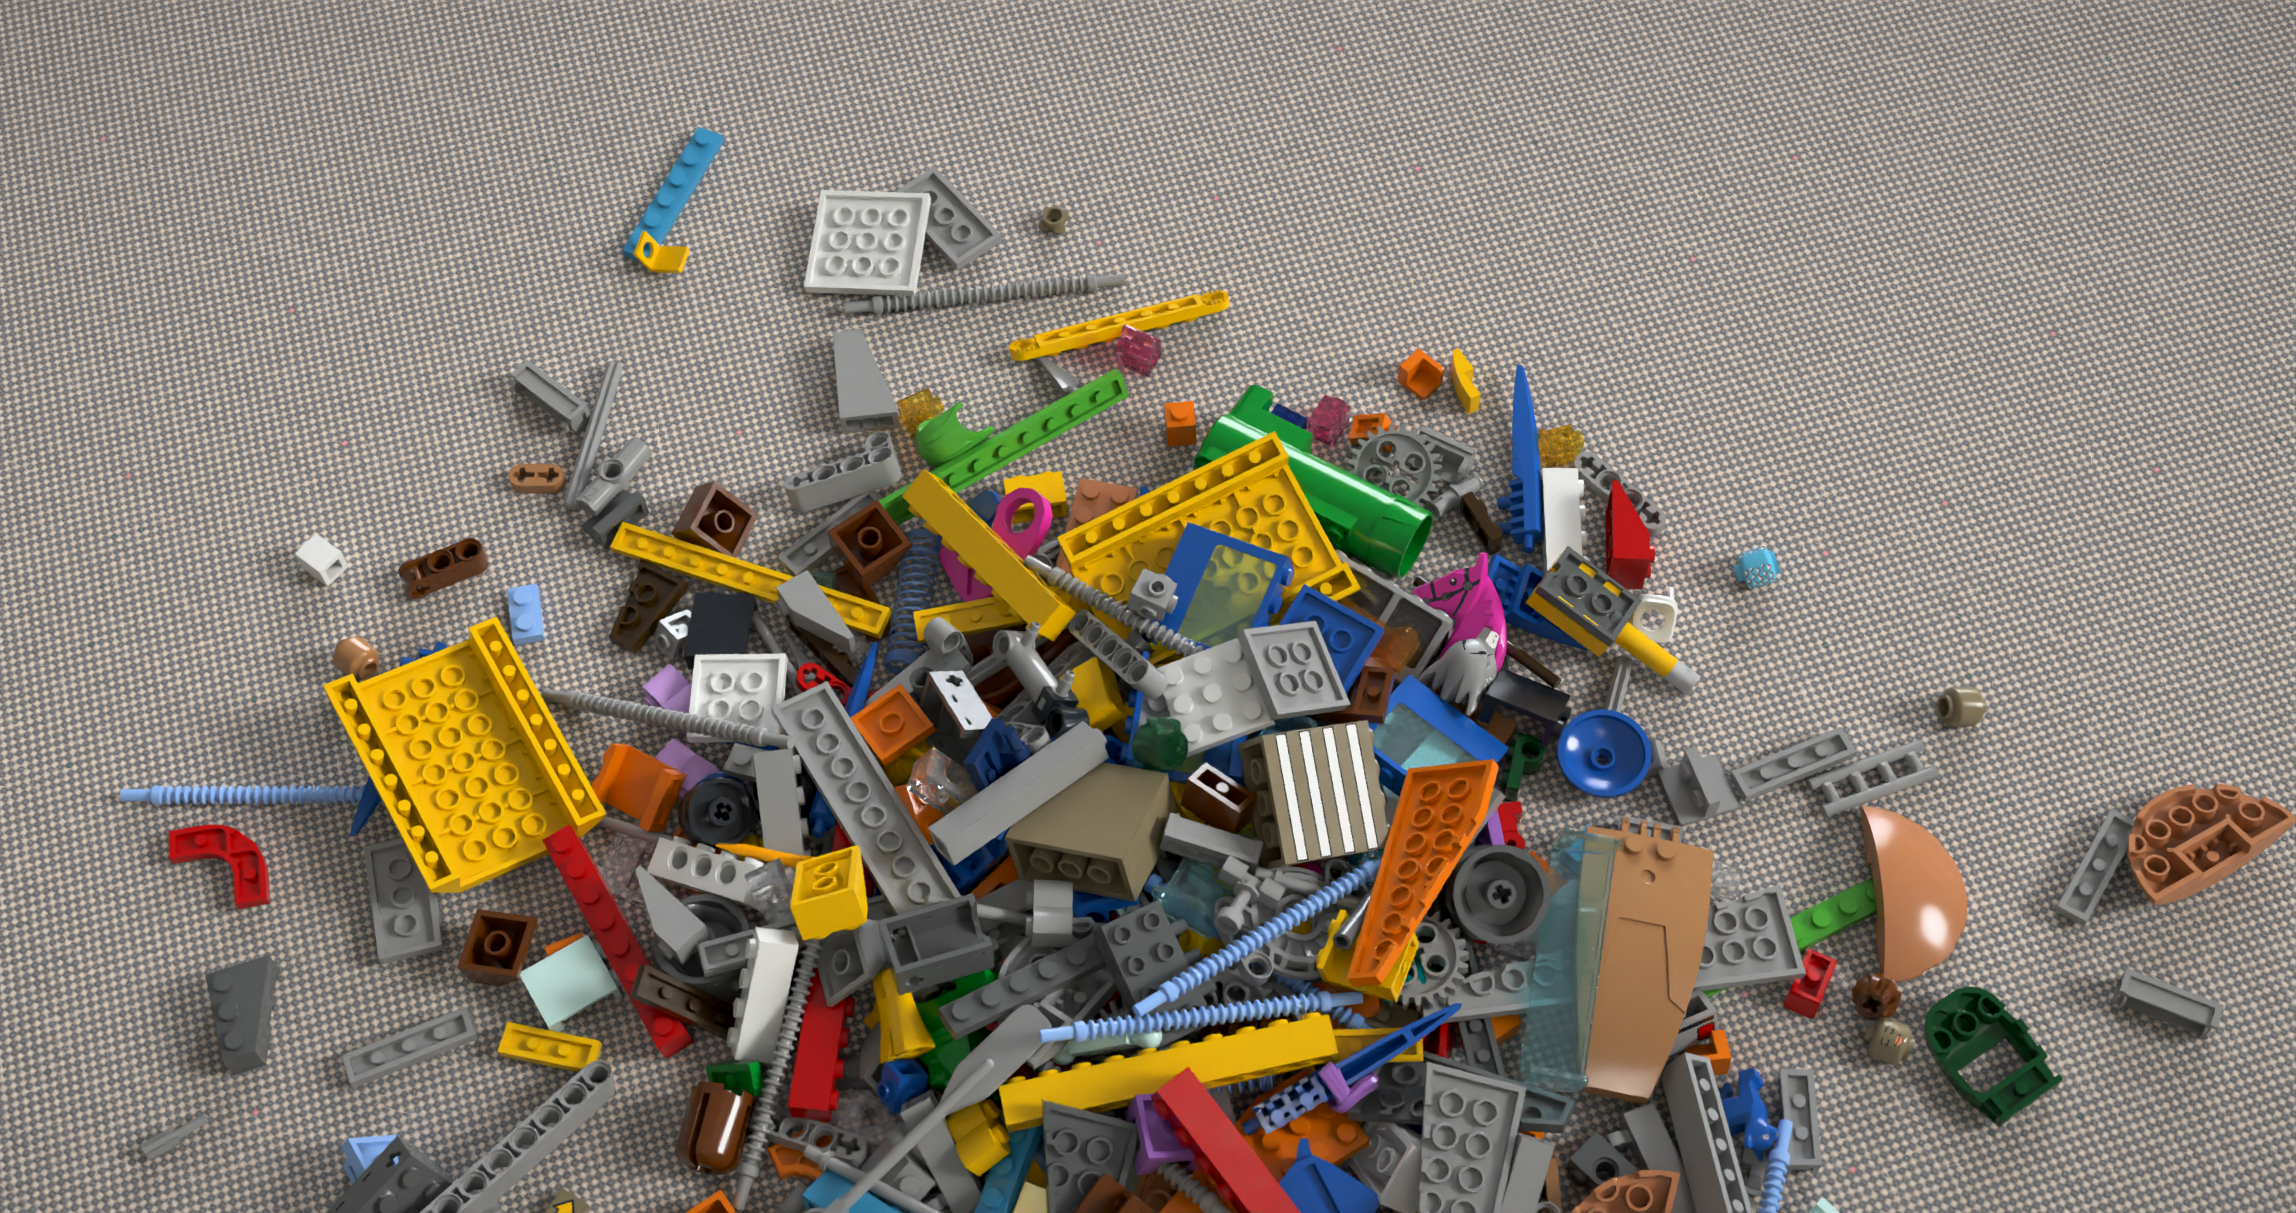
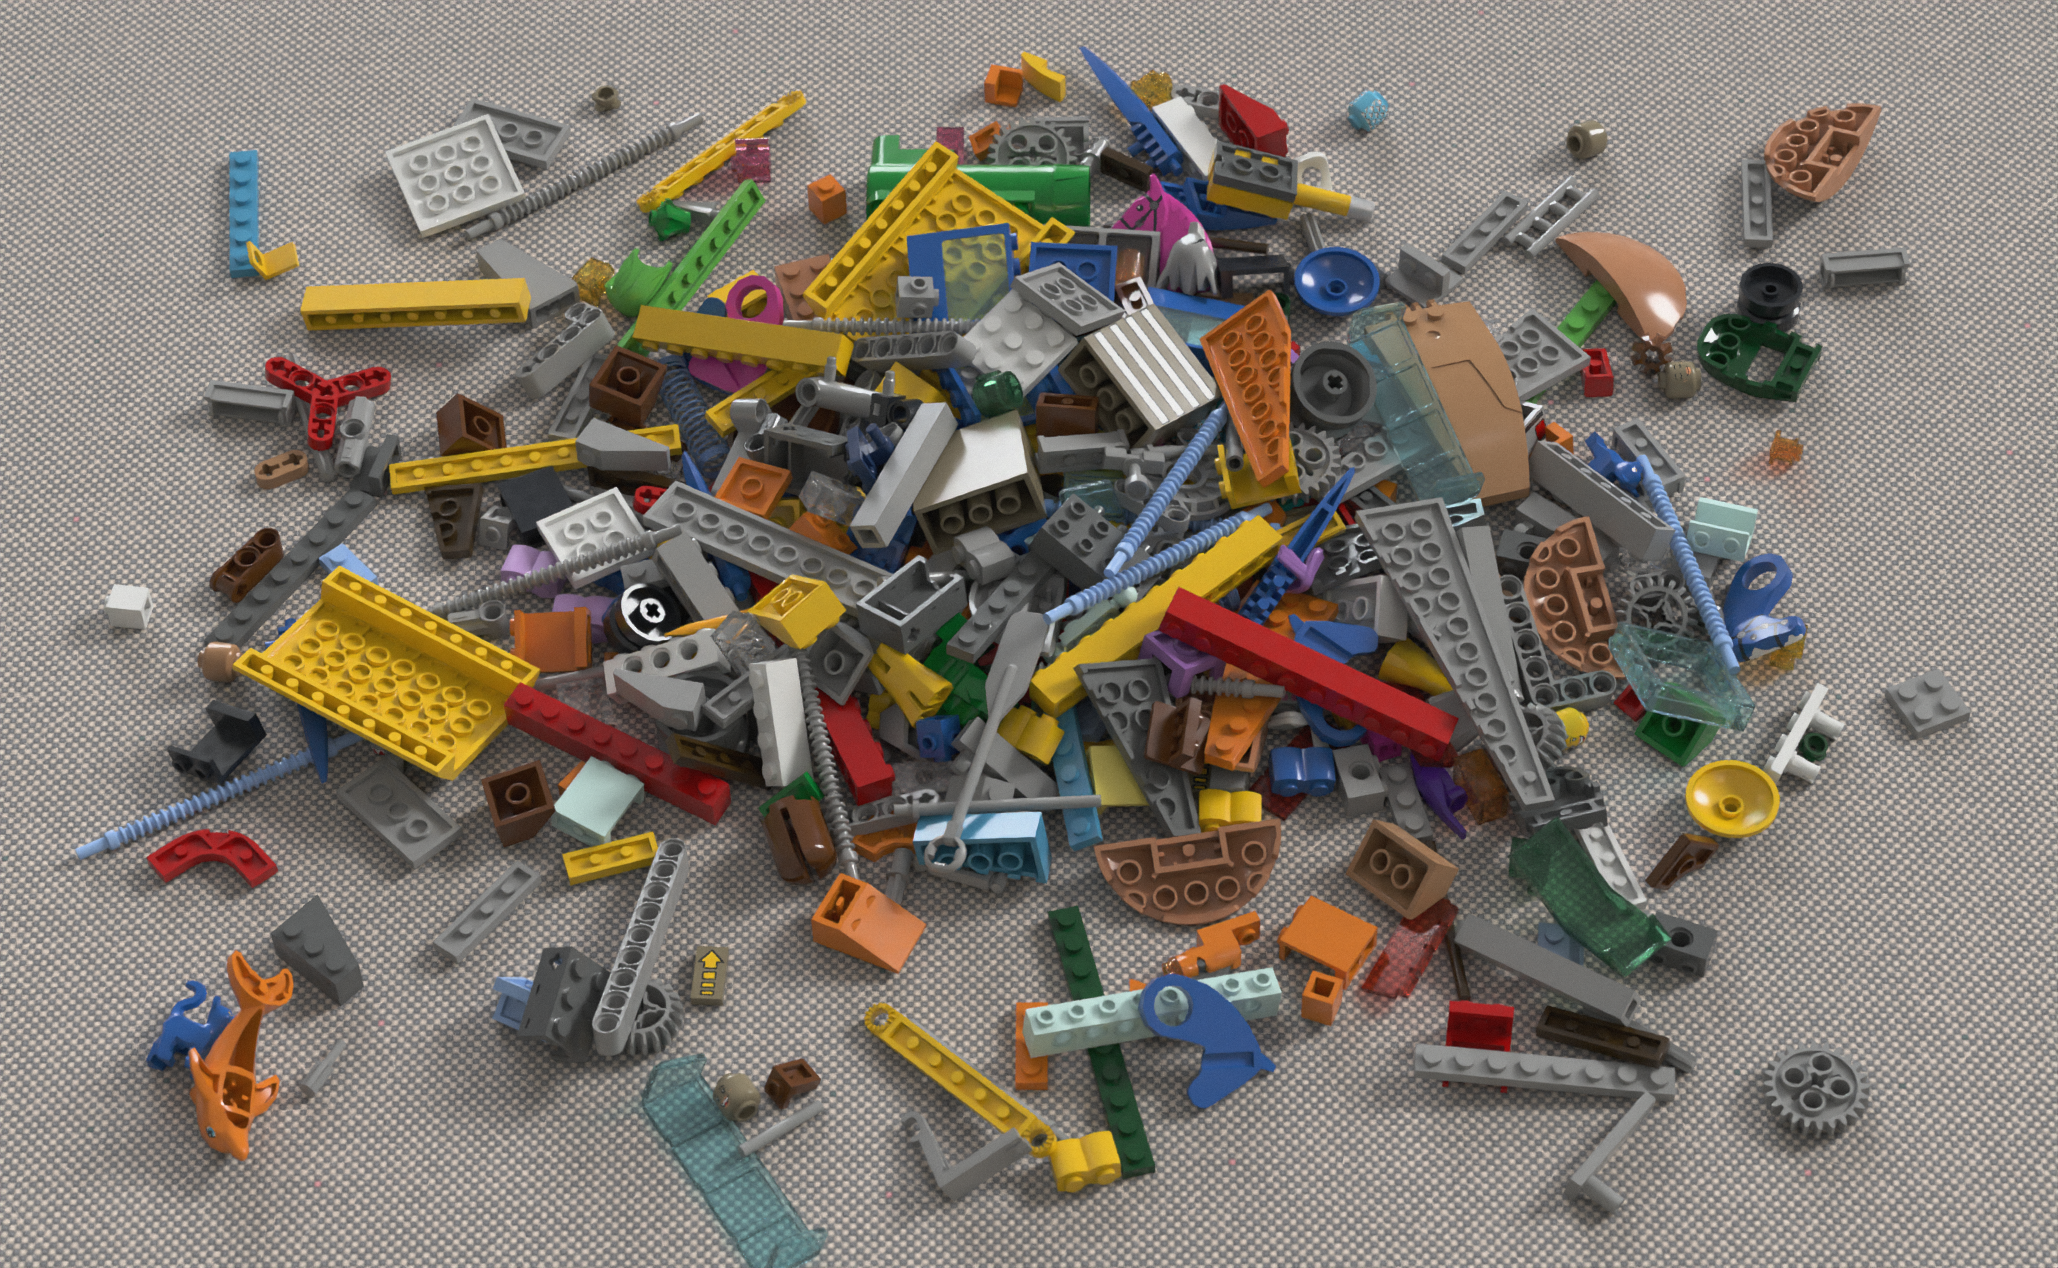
camera: 30 degrees left, 10 degrees down
(73, 1117) = (226, 1081): none -> orange animal
(84, 1043) = (183, 1034): none -> blue animal
(298, 749) = (223, 747): none -> black panel
(477, 590) = (293, 569): none -> dark grey plate
(594, 728) = (487, 620): none -> light grey piece
(609, 431) = (325, 394): none -> red piece
(747, 365) = (416, 304): none -> yellow brick
(1025, 378) = (669, 220): none -> green rock
(1952, 1182) = (1785, 449): none -> clear orange brick
(2041, 991) = (1770, 294): none -> black wheel

